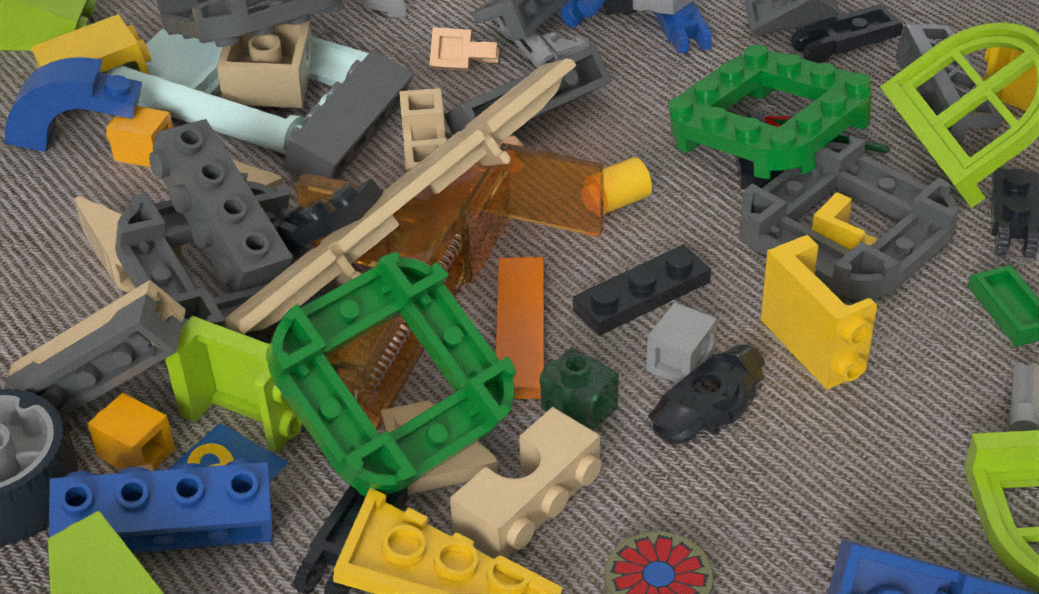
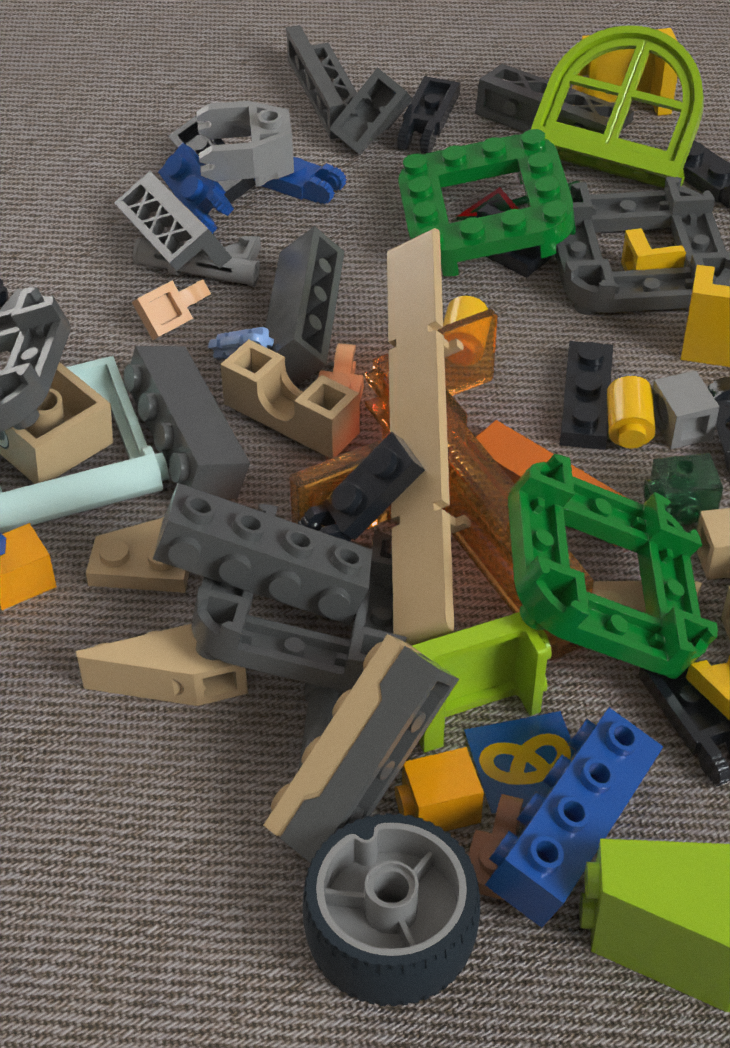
camera: 50 degrees left, 5 degrees up
(454, 95) = (228, 343): none -> light blue axle
(634, 317) = (630, 412): none -> yellow brick

